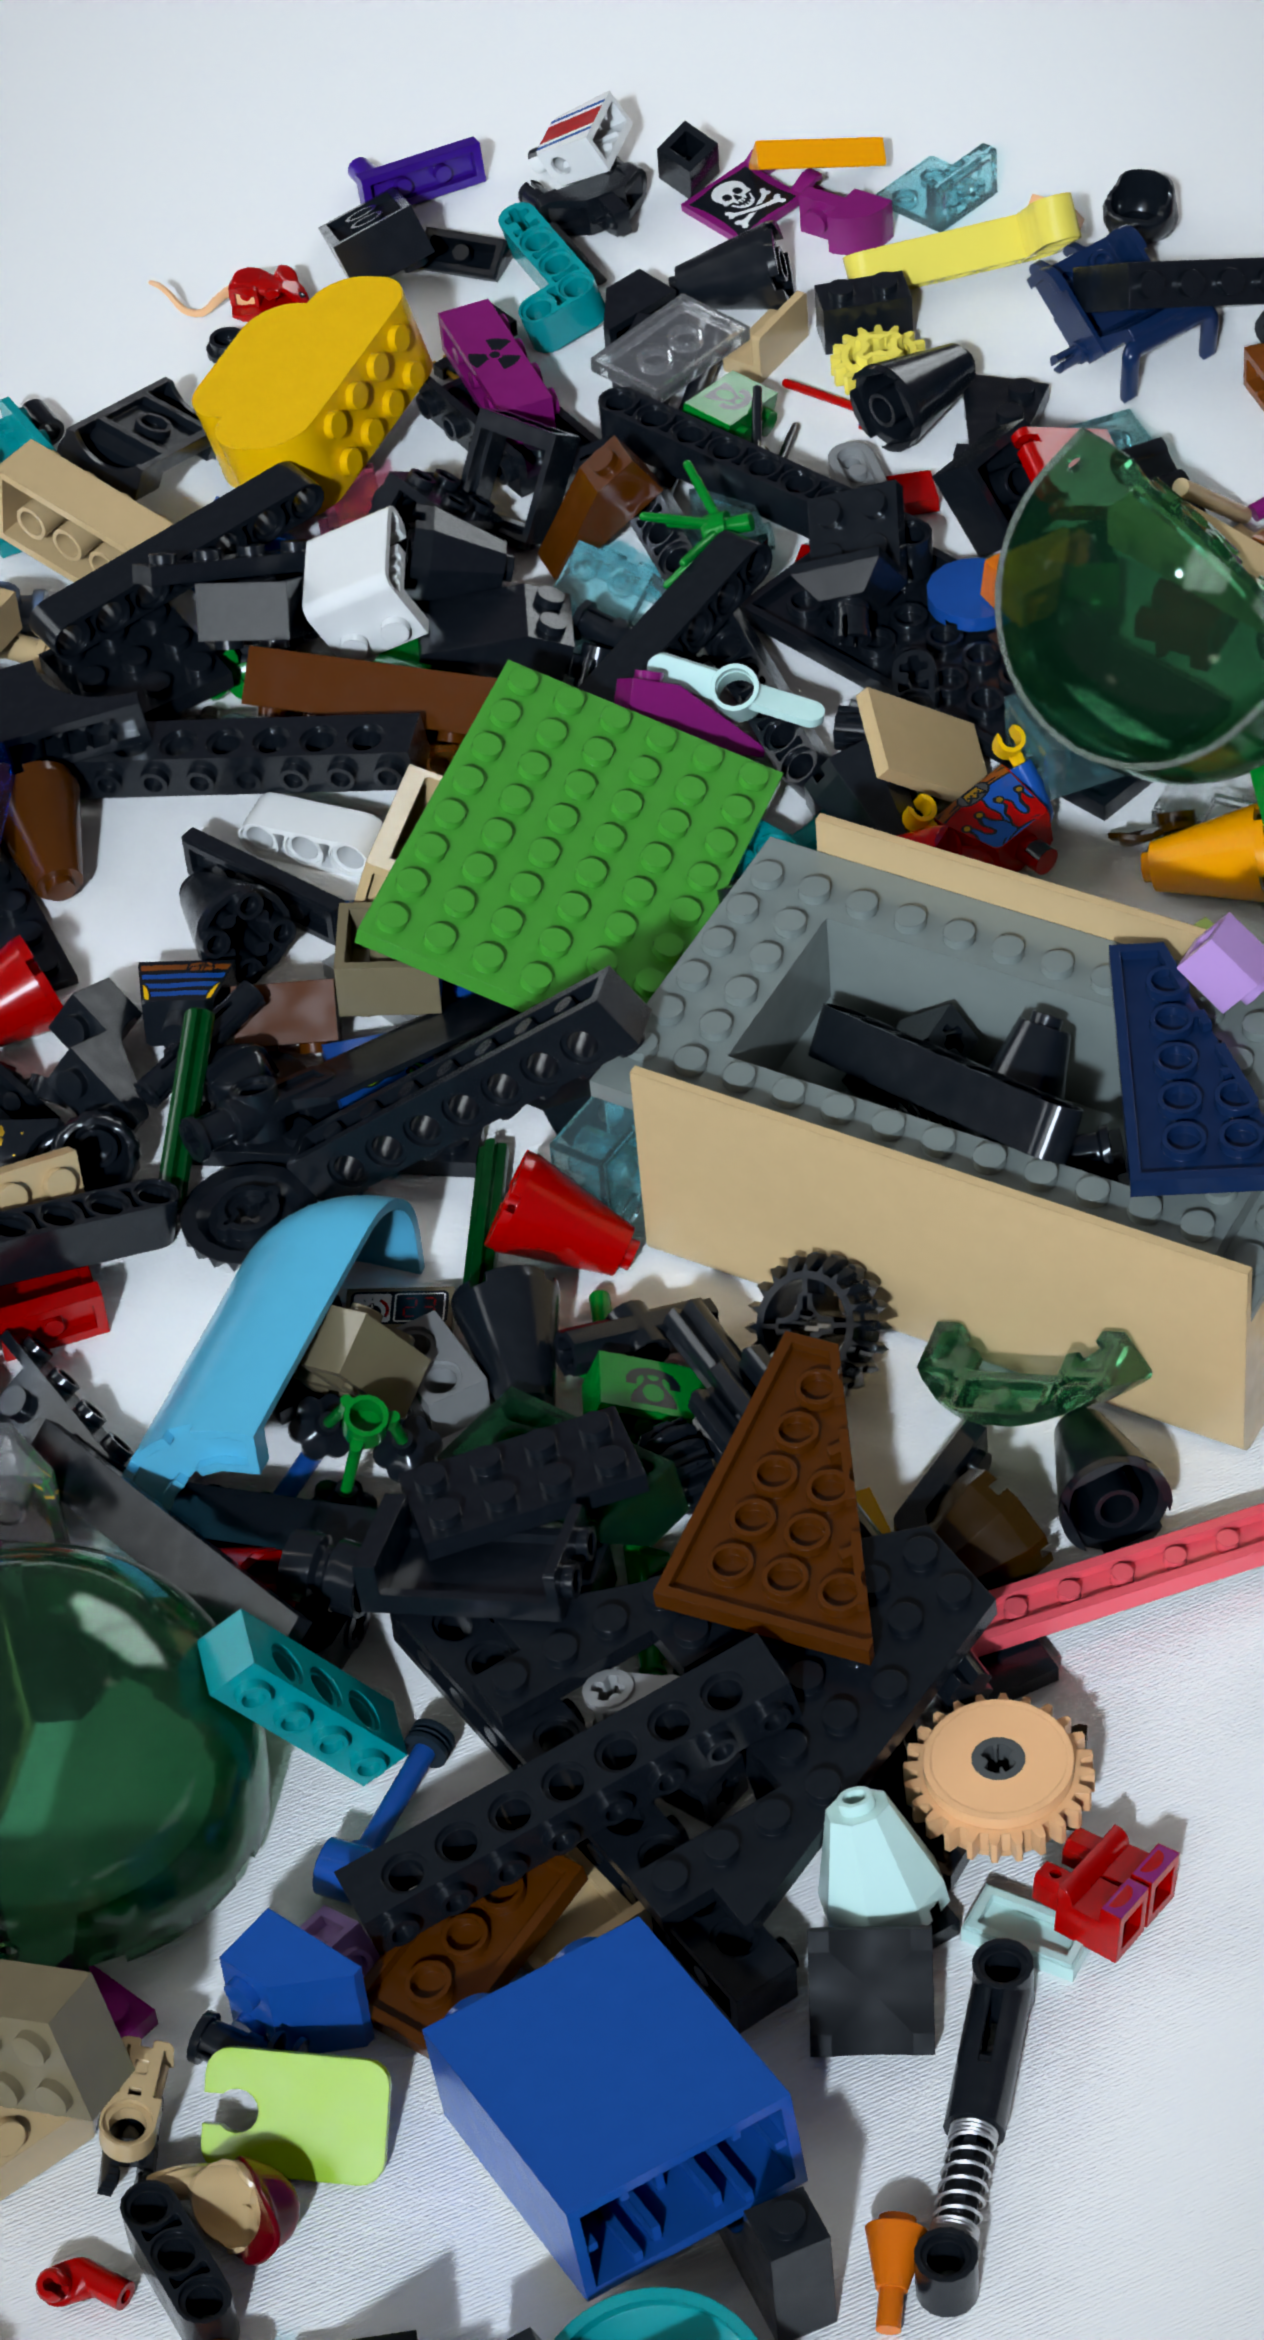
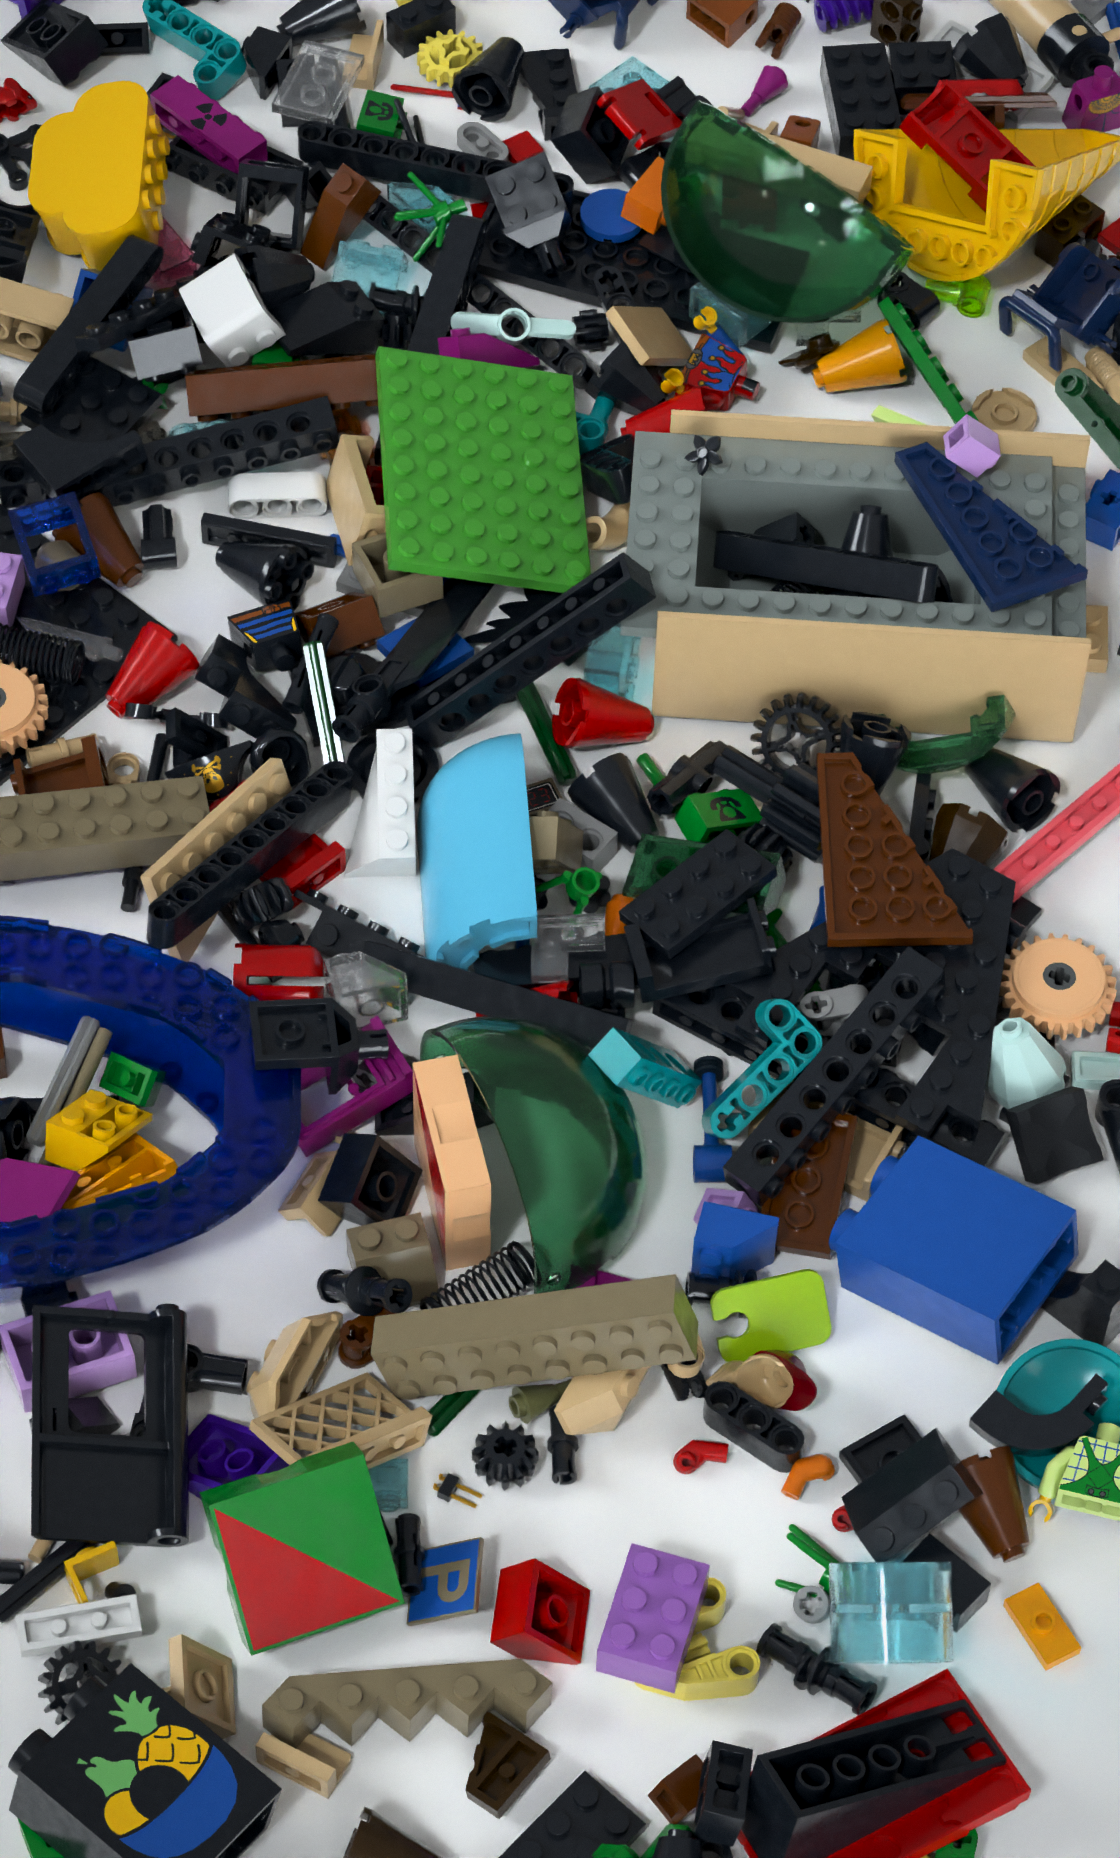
camera: 30 degrees left, 10 degrees up
(121, 857) = (158, 543): none -> black piece
(190, 1281) = (386, 822): none -> white wedge
(303, 1488) = (559, 936): none -> clear tile
(460, 1756) = (757, 1073): none -> teal beam
(837, 881) = (705, 453): none -> black plant
(895, 1374) = (874, 745): none -> black cone

